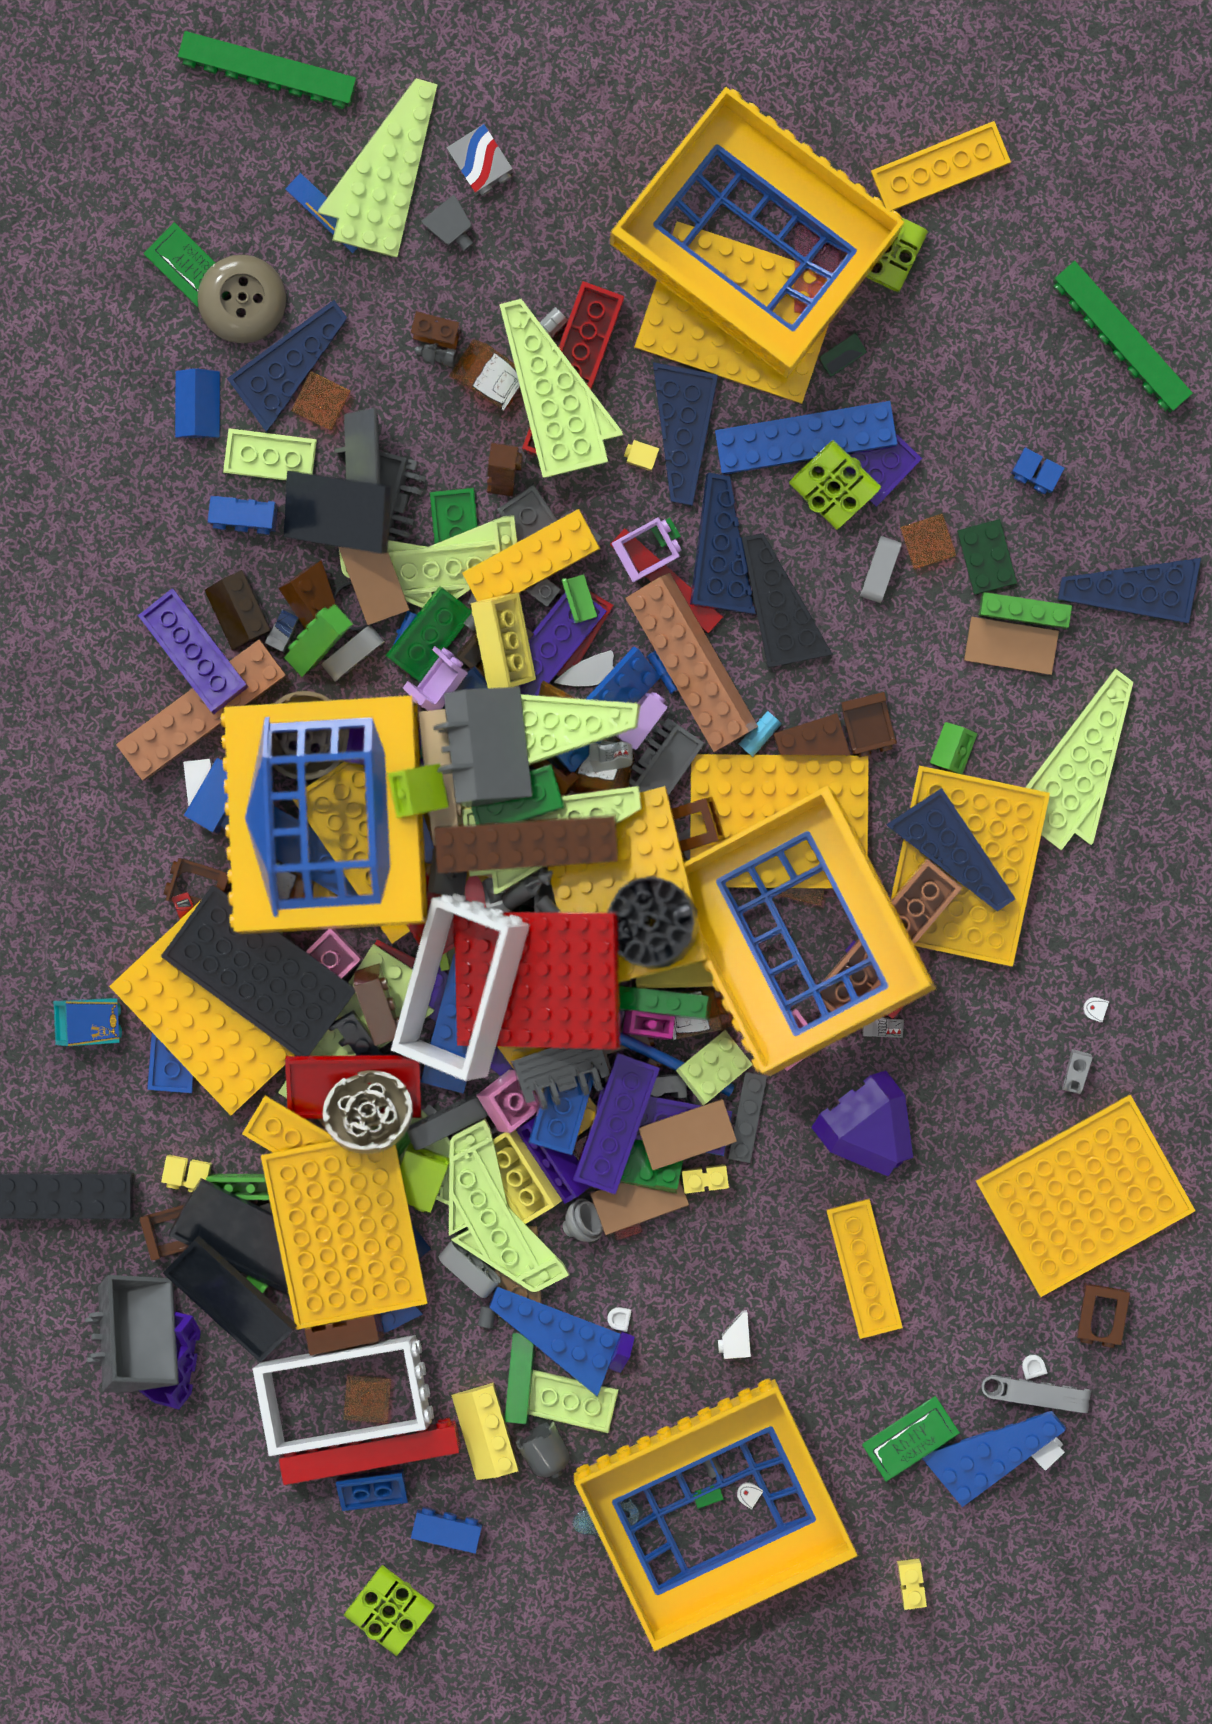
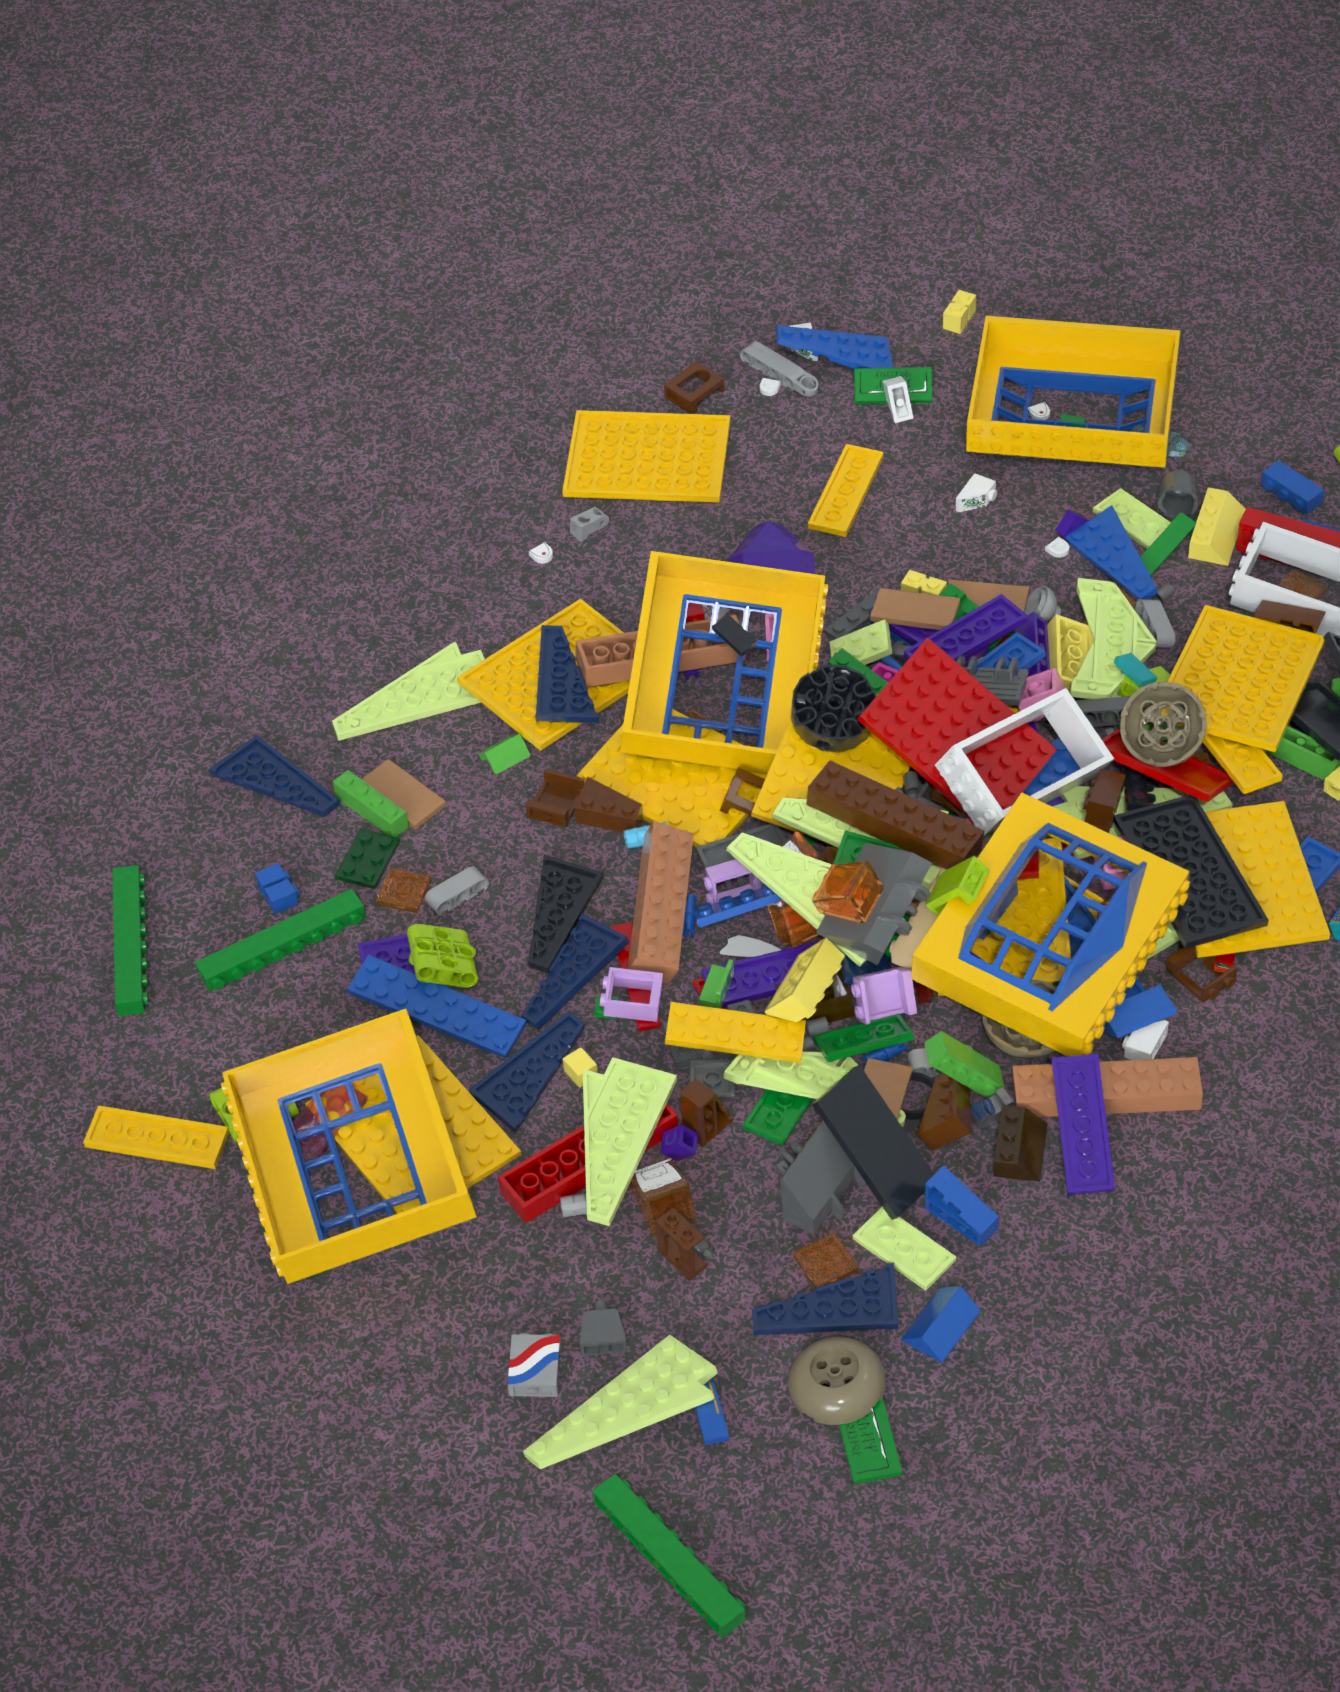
camera: 145 degrees left, 40 degrees down
(442, 1181) = (1135, 669): none -> teal tile
(507, 430) = (679, 1143): none -> dark purple brick
(507, 725) = (849, 891): none -> clear orange slope
(796, 949) = (734, 635): none -> black tile
(891, 1418) = (898, 399): none -> white slope
(991, 420) = (280, 940): none -> green brick

